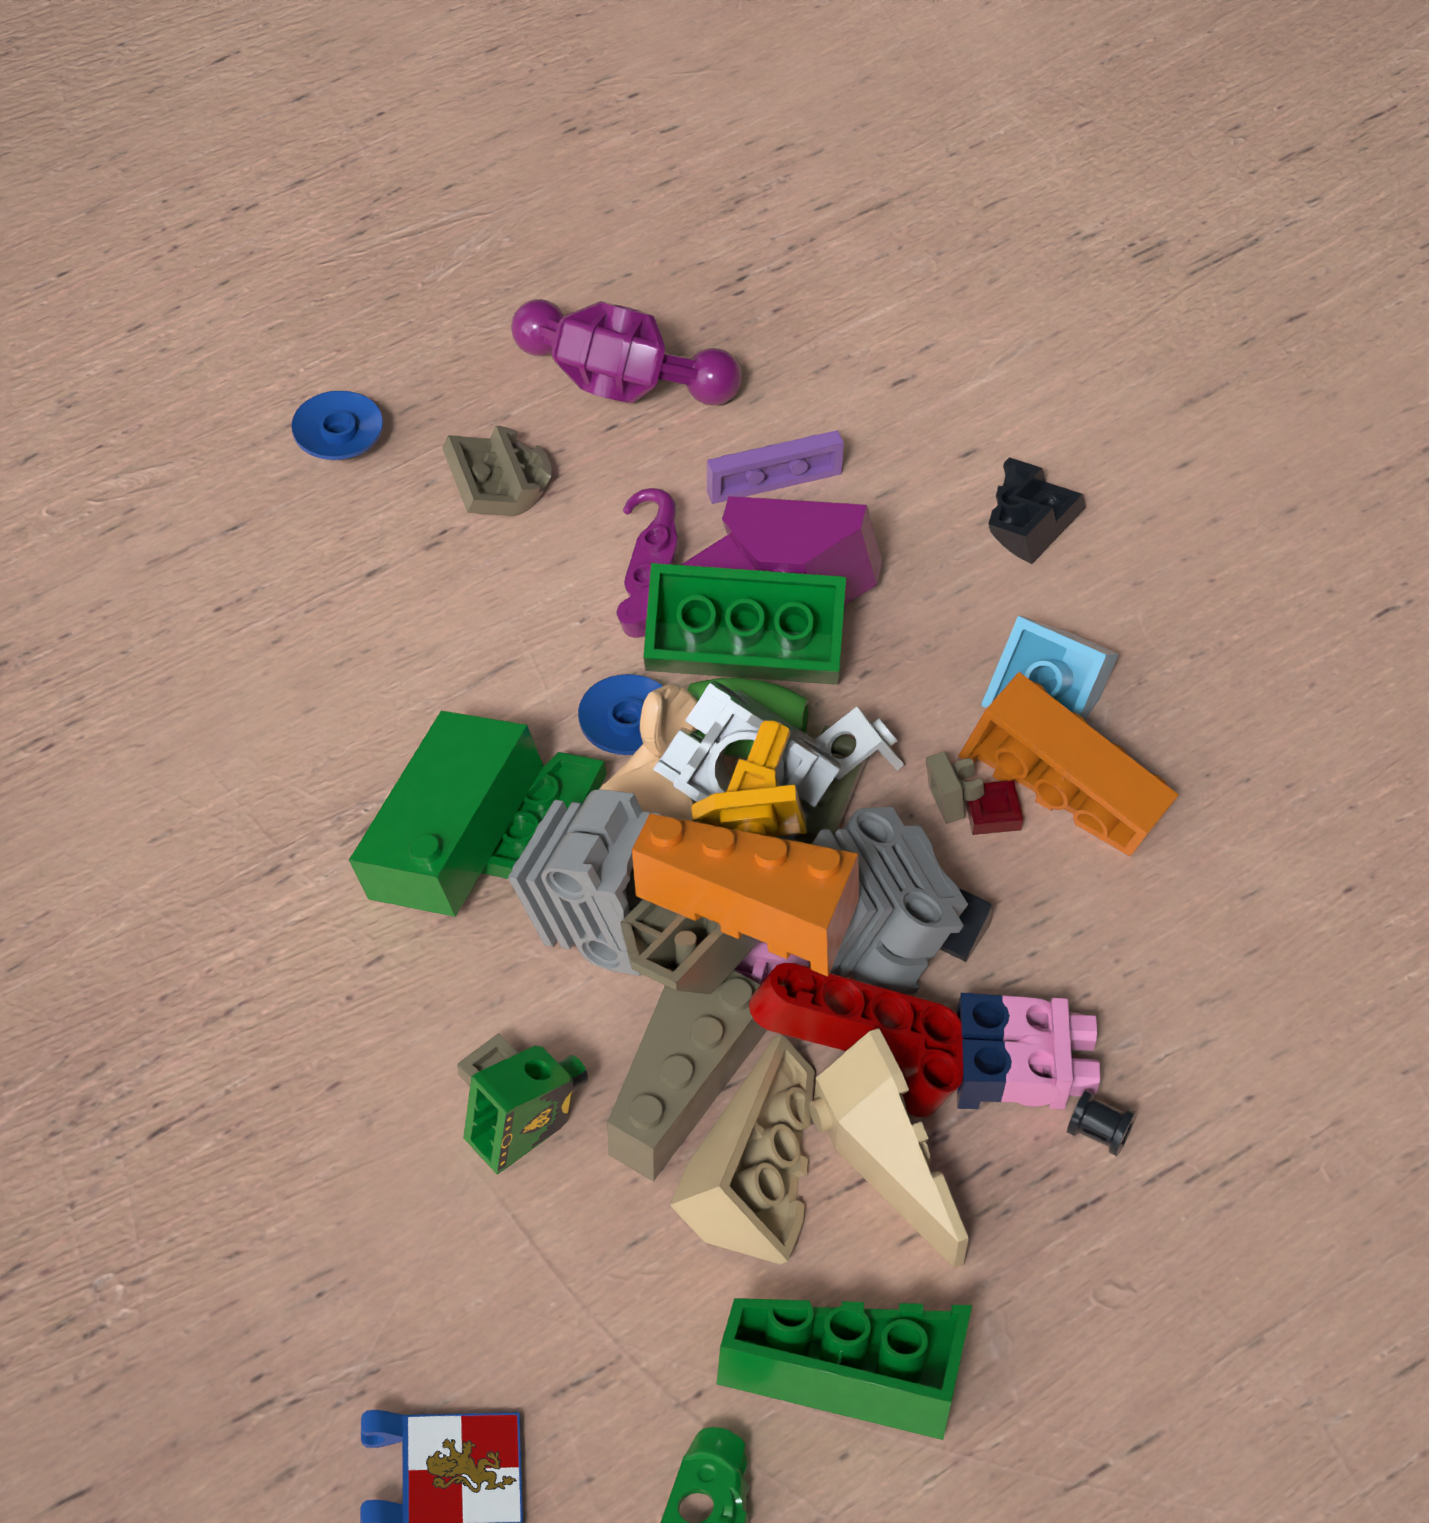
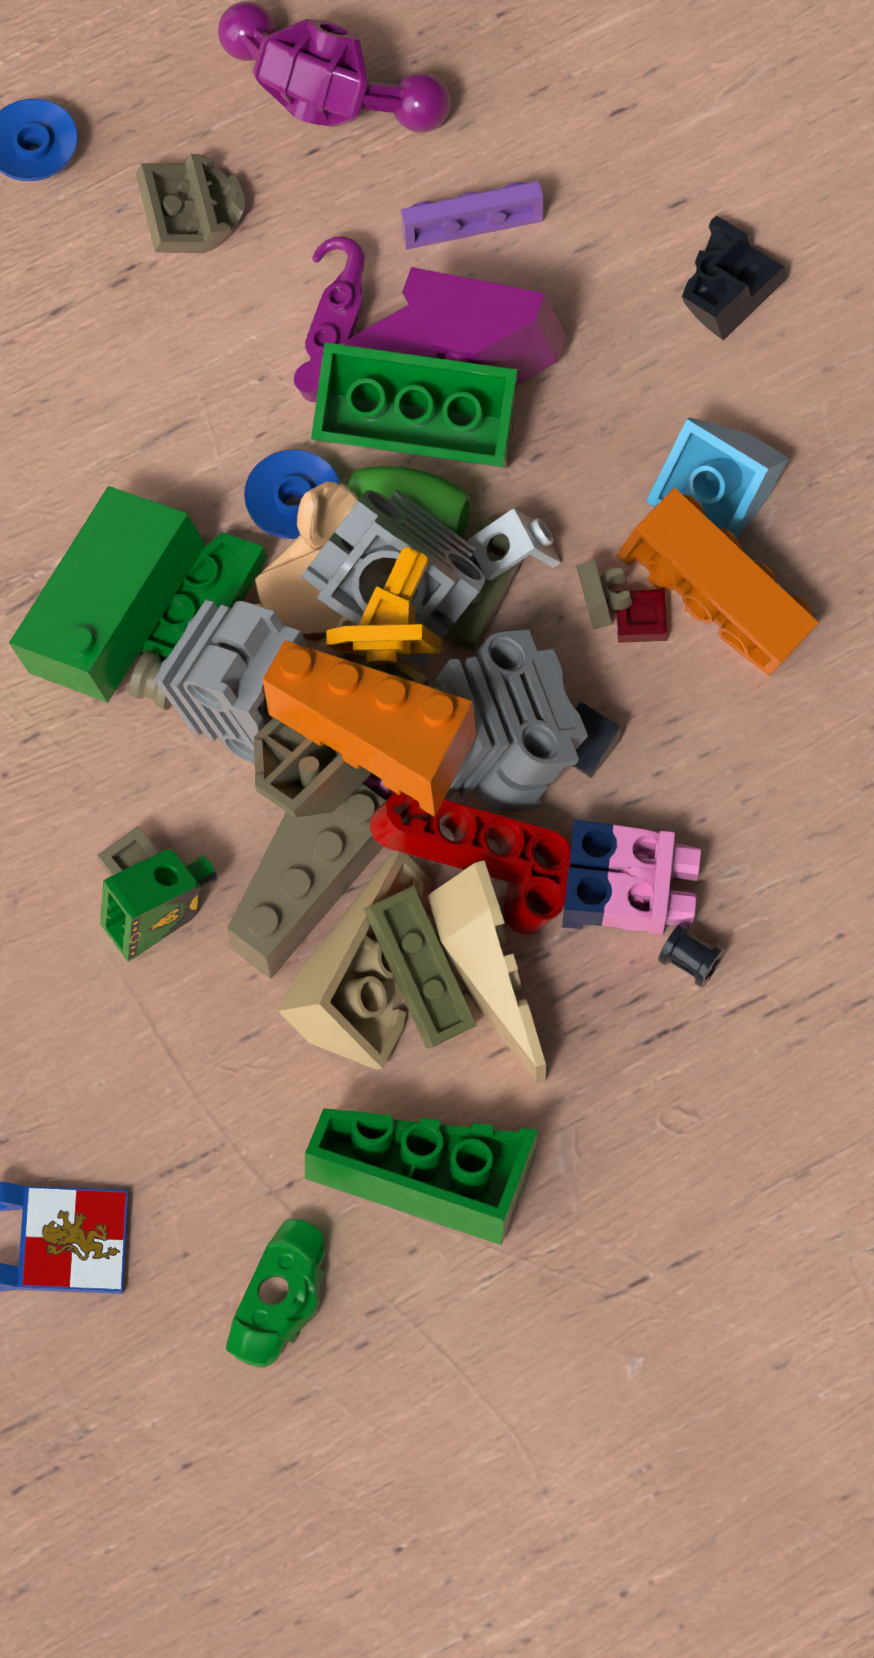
camera: 10 degrees right, 15 degrees up
(499, 895) = (143, 683): none -> dark tan wheel
(817, 1150) = (420, 967): none -> olive plate

